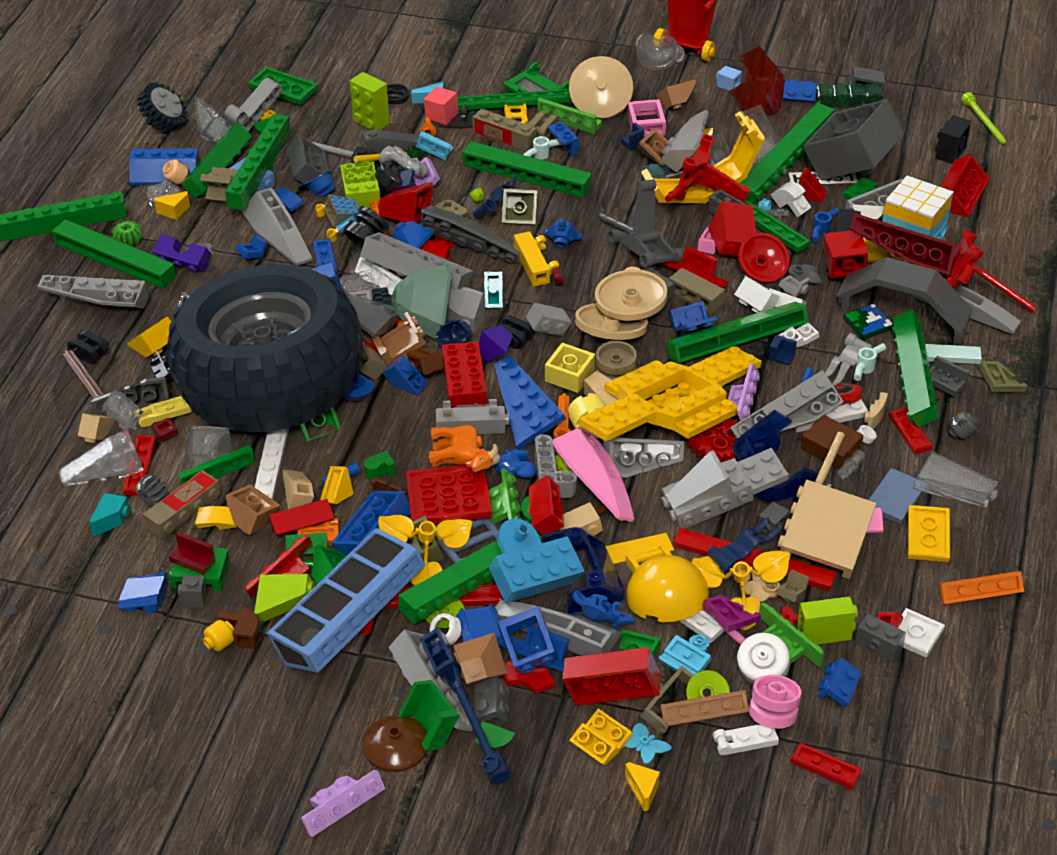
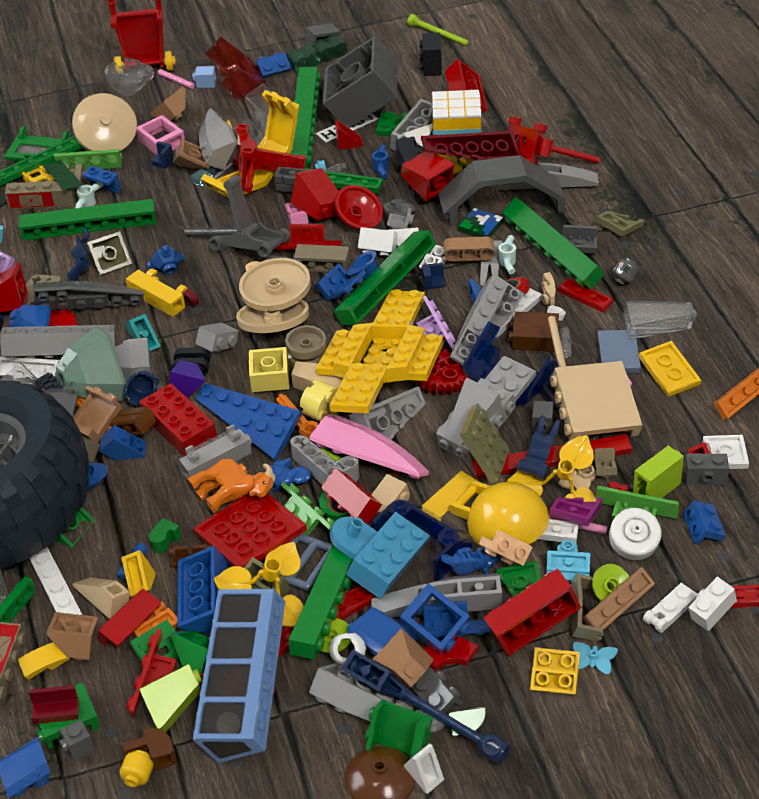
camera: 30 degrees left, 0 degrees up
(429, 754) = (425, 769): none -> white slope
(477, 195) = (59, 260): lime hinge -> none
(531, 119) = (62, 174): none -> dark green sticker
(636, 611) = (507, 546): none -> light nougat bracket
(643, 783) = (623, 691): yellow slope -> none
(687, 515) = (484, 443): none -> olive plate
(704, 71) = (176, 79): none -> bright pink bar
(726, 312) = (366, 262): none -> blue piece
(775, 701) = (674, 563): bright pink wheel -> none
(779, 752) = (712, 603): none -> white brick
(792, 195) = (338, 147): white brick -> none
(832, 339) = (469, 248): none -> medium nougat beam
(954, 353) = (573, 217): light aqua tile -> none

